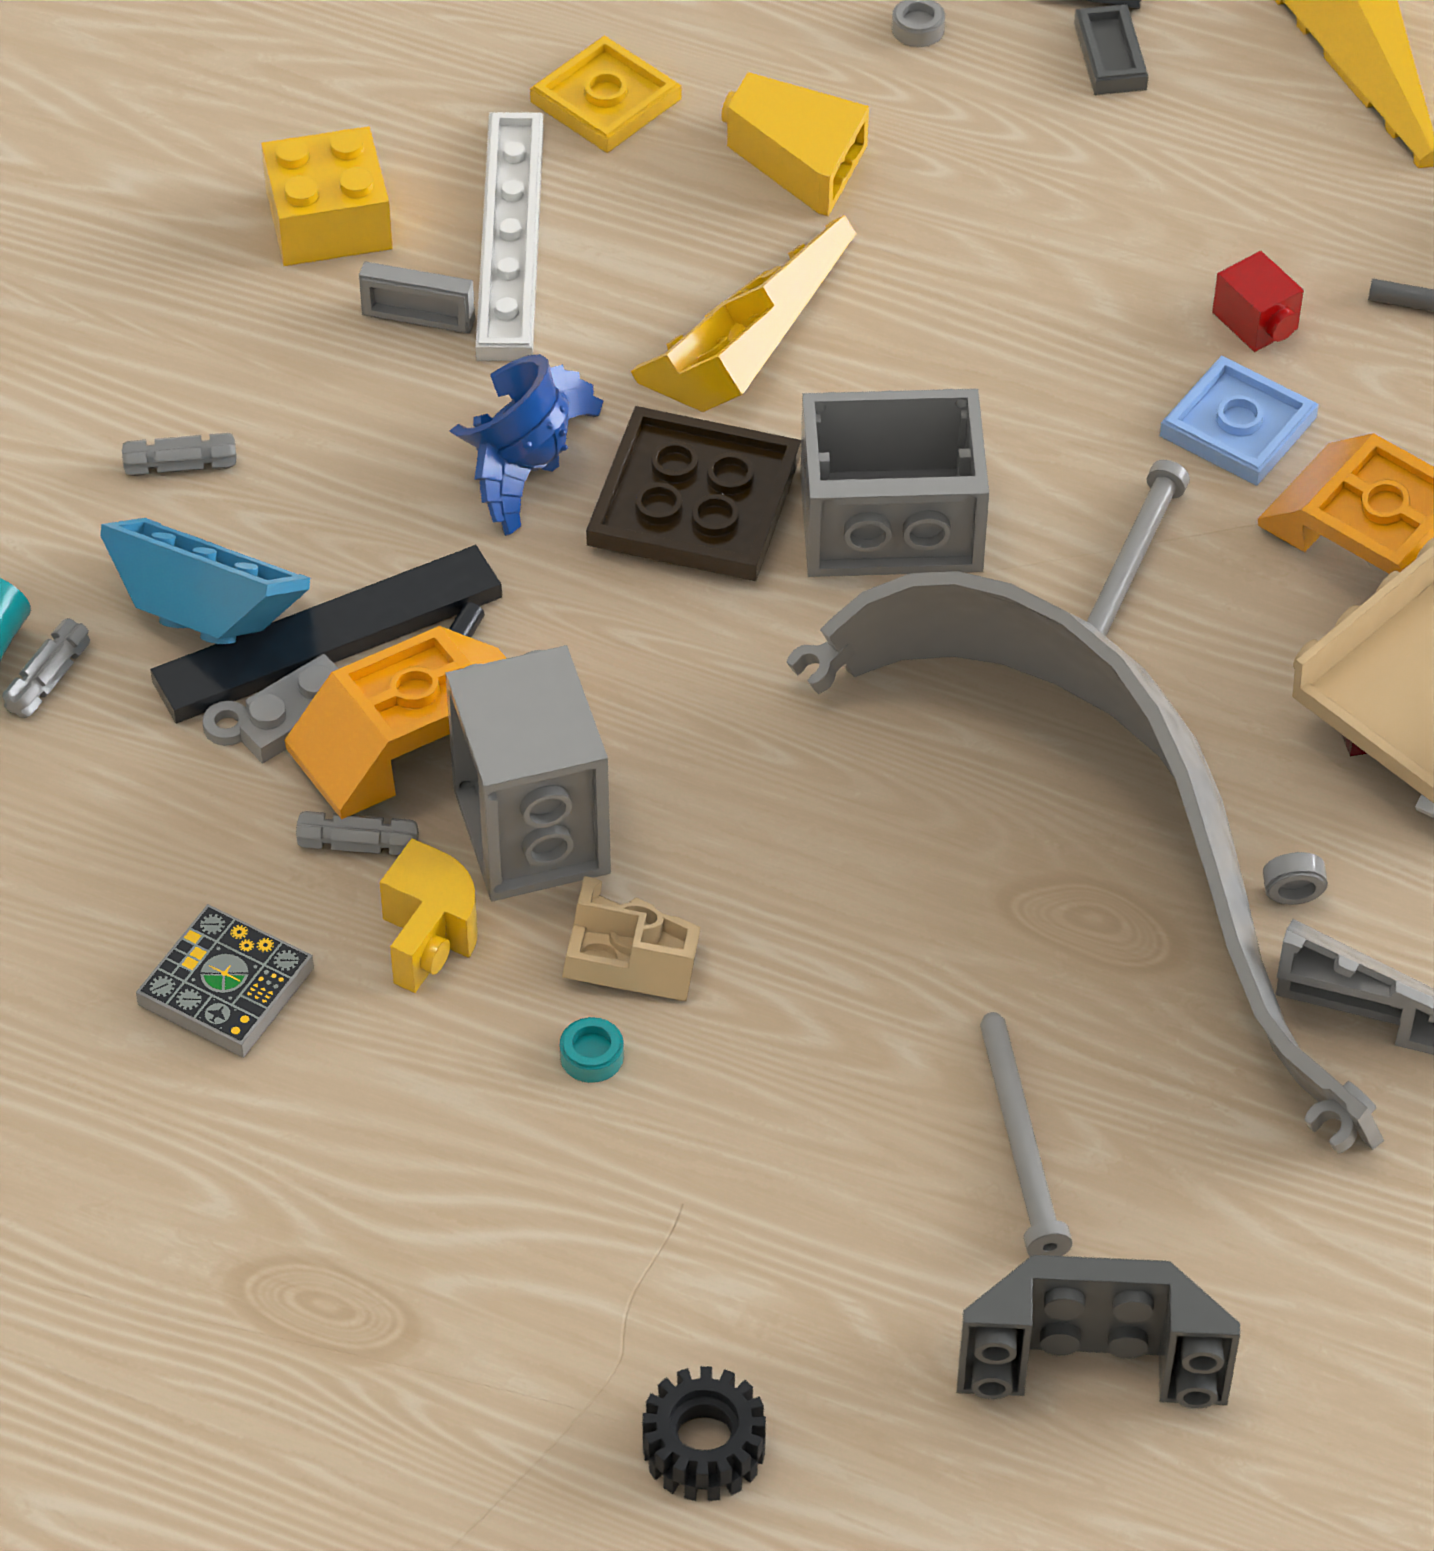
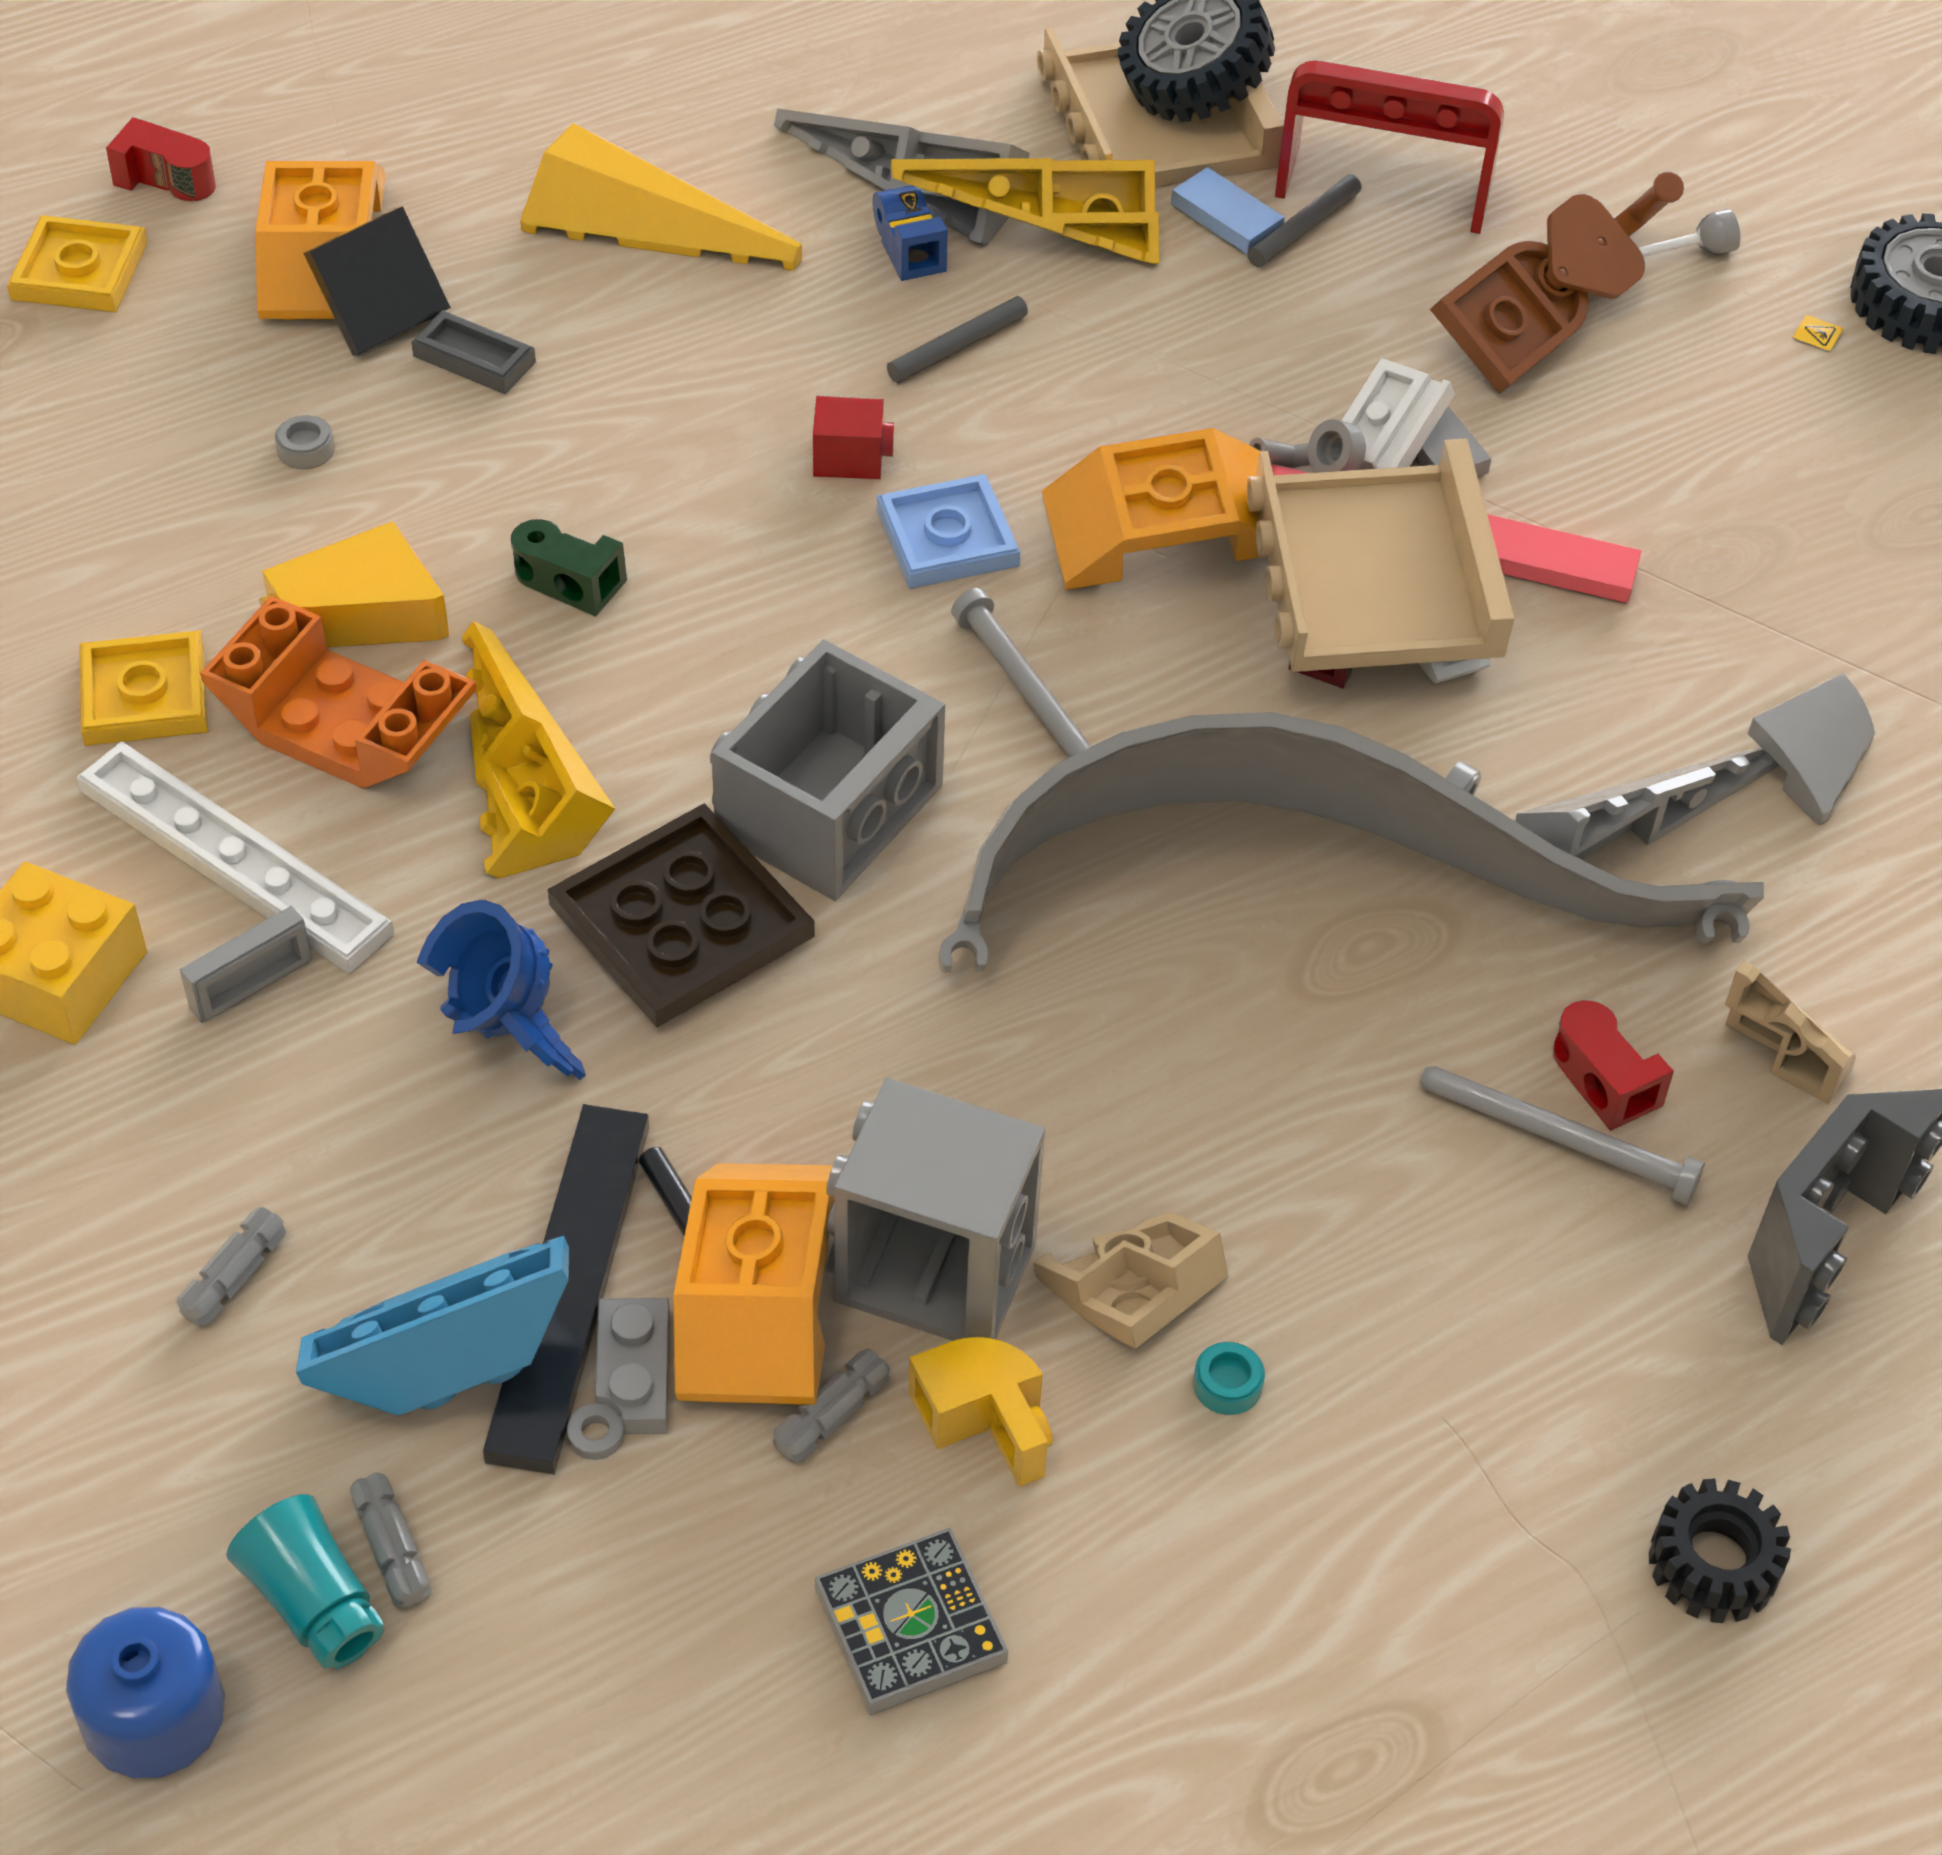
camera: 55 degrees left, 0 degrees up
(684, 177) = (328, 706): none -> orange slope
(950, 240) = (567, 566): none -> dark green leg
(1114, 1110) = (1607, 1067): none -> red leg
(1258, 1222) = (1804, 1049): none -> tan slope

